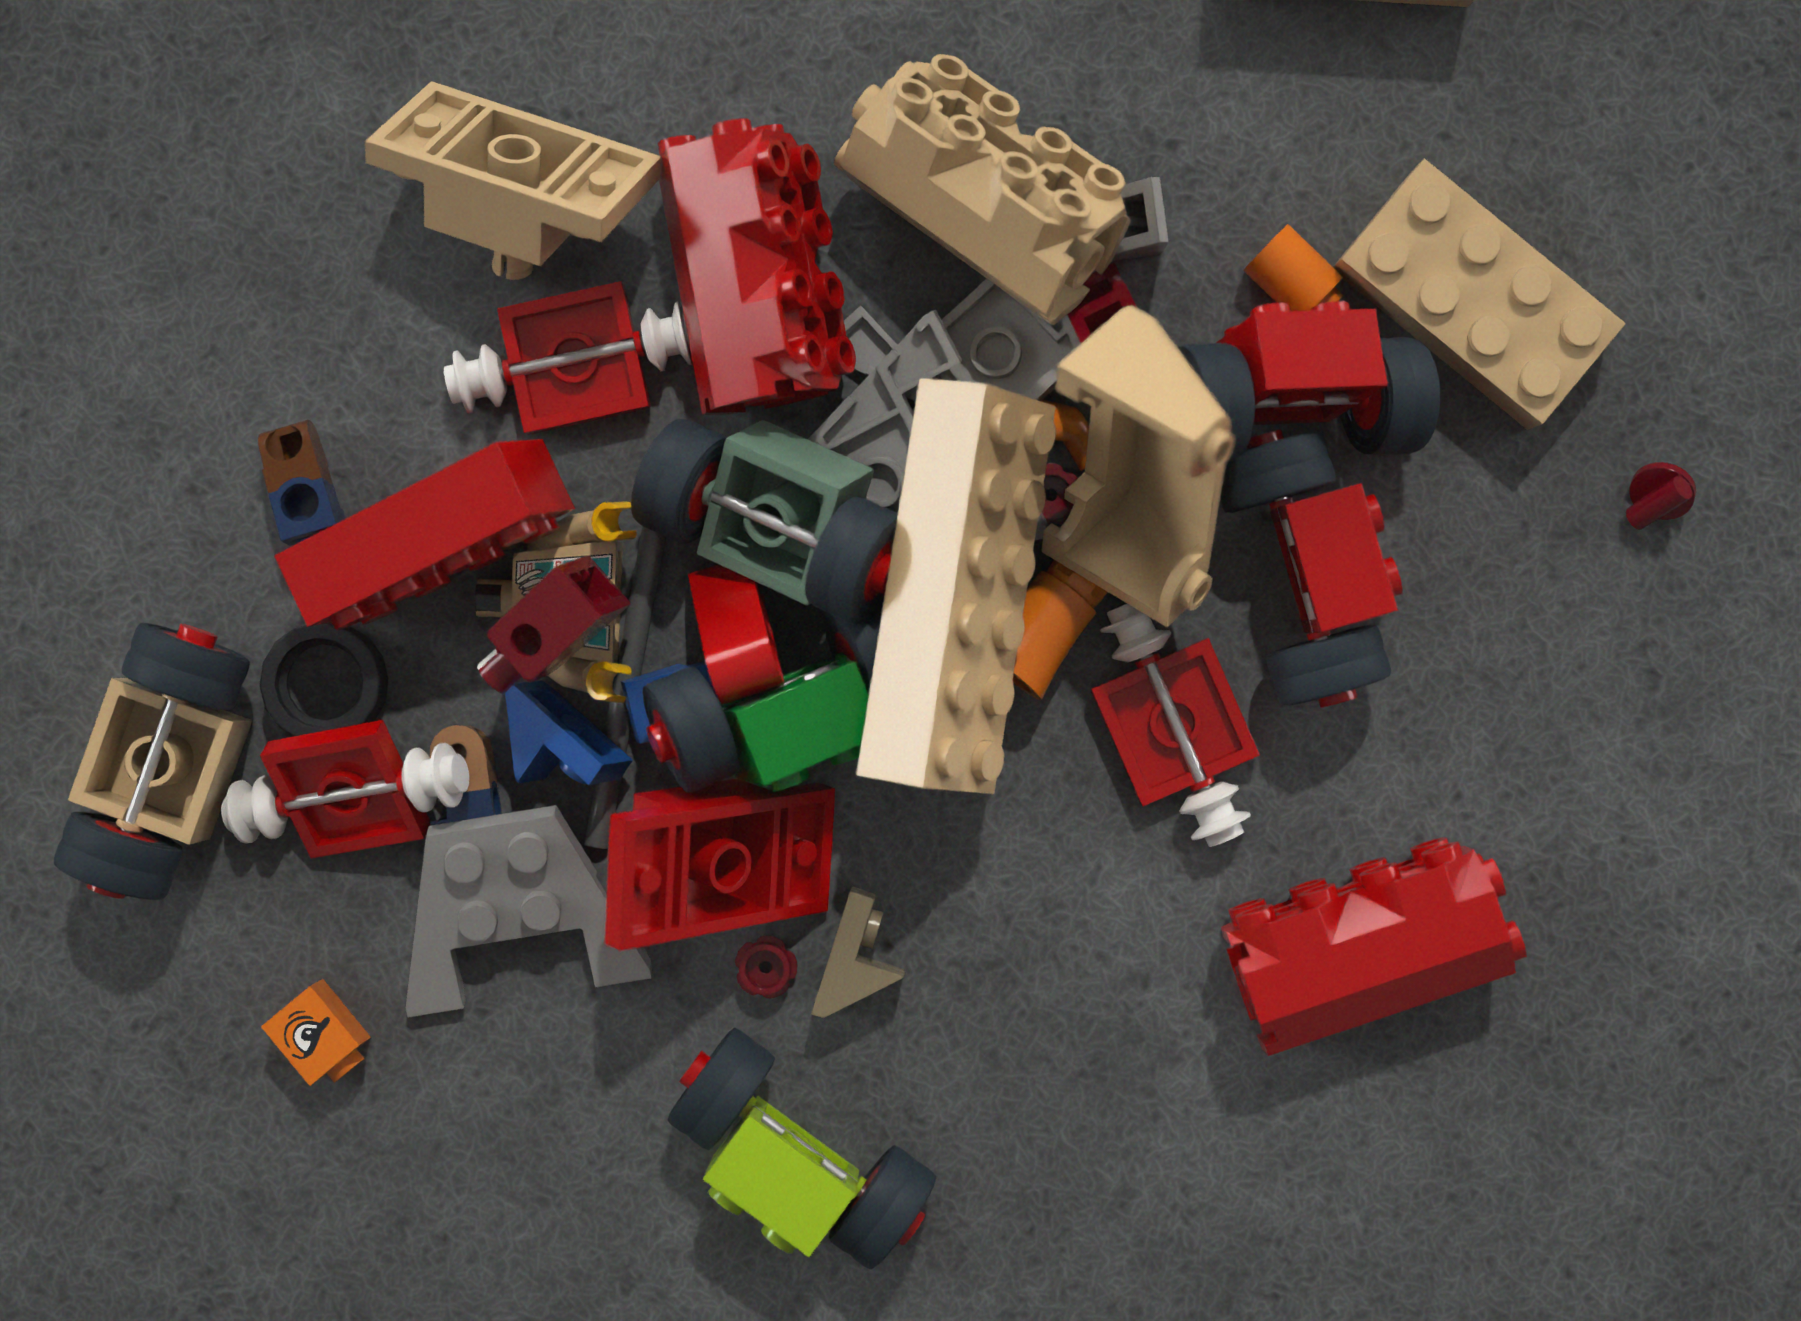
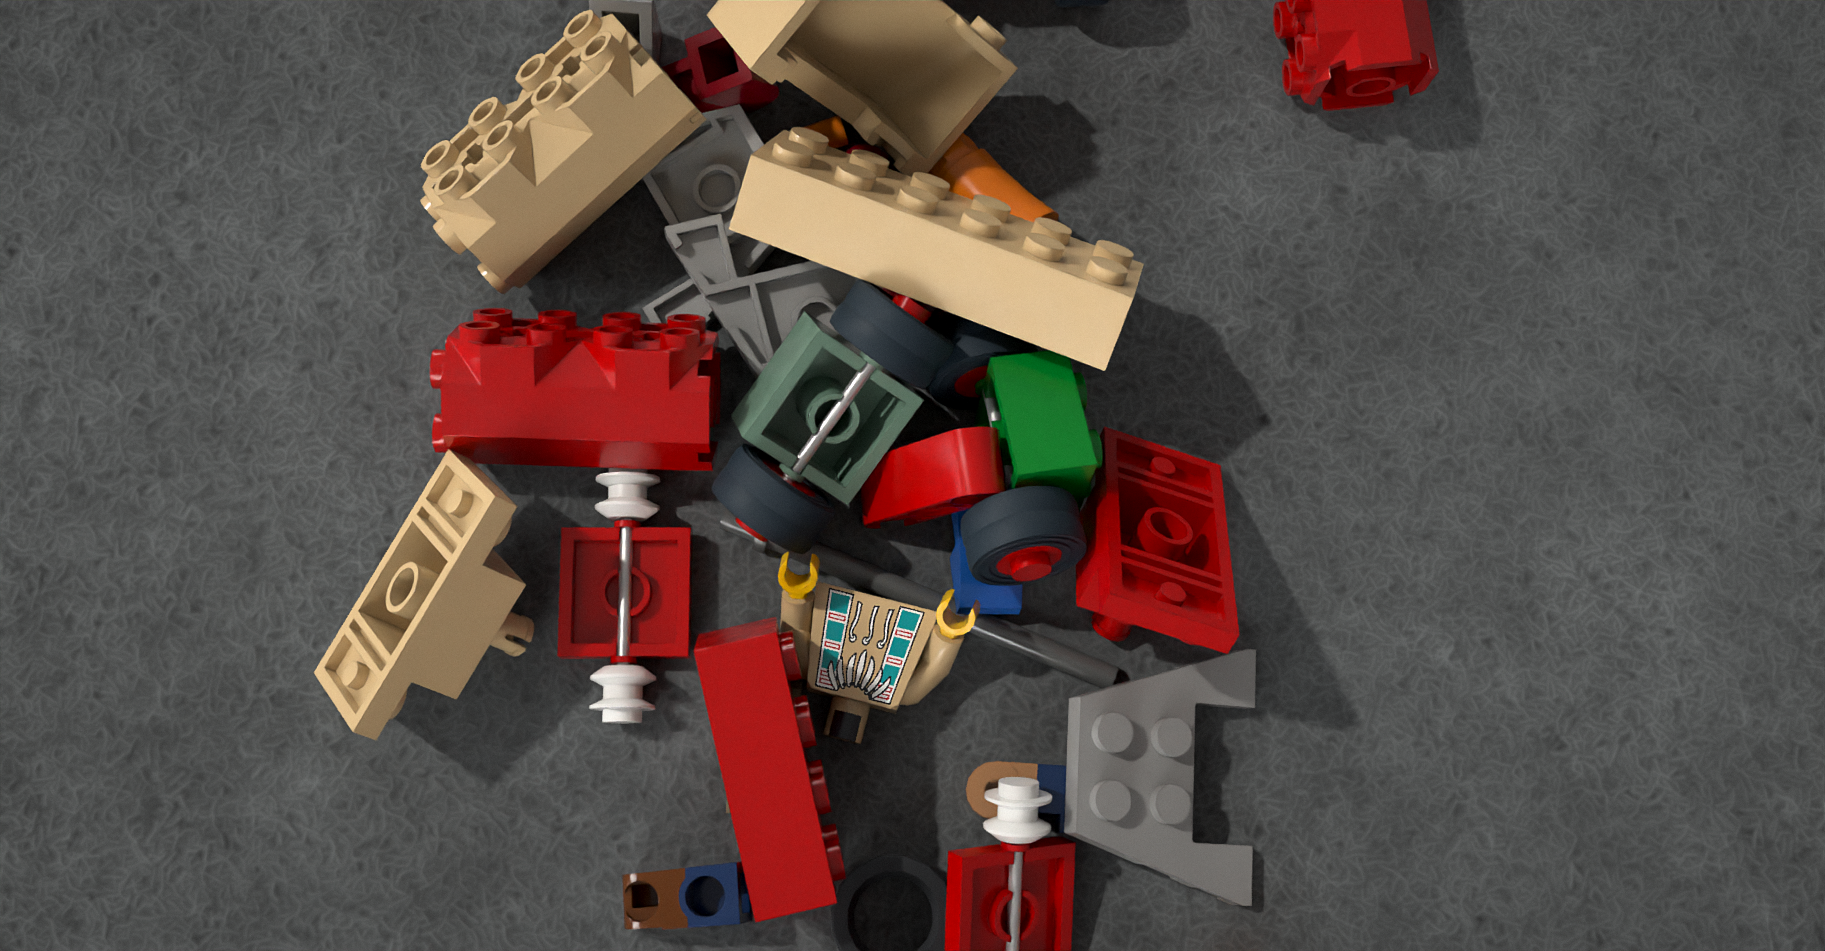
camera: 85 degrees left, 10 degrees down
(551, 732) = (987, 695): blue slope -> none
(566, 610) = (874, 629): dark red torso -> none
(753, 979) = (1267, 520): dark red plate -> none
(787, 1173) = (1478, 551): brick -> none
(847, 974) = (1286, 458): dark tan slope -> none
(1175, 724) = (1103, 106): red plate -> none

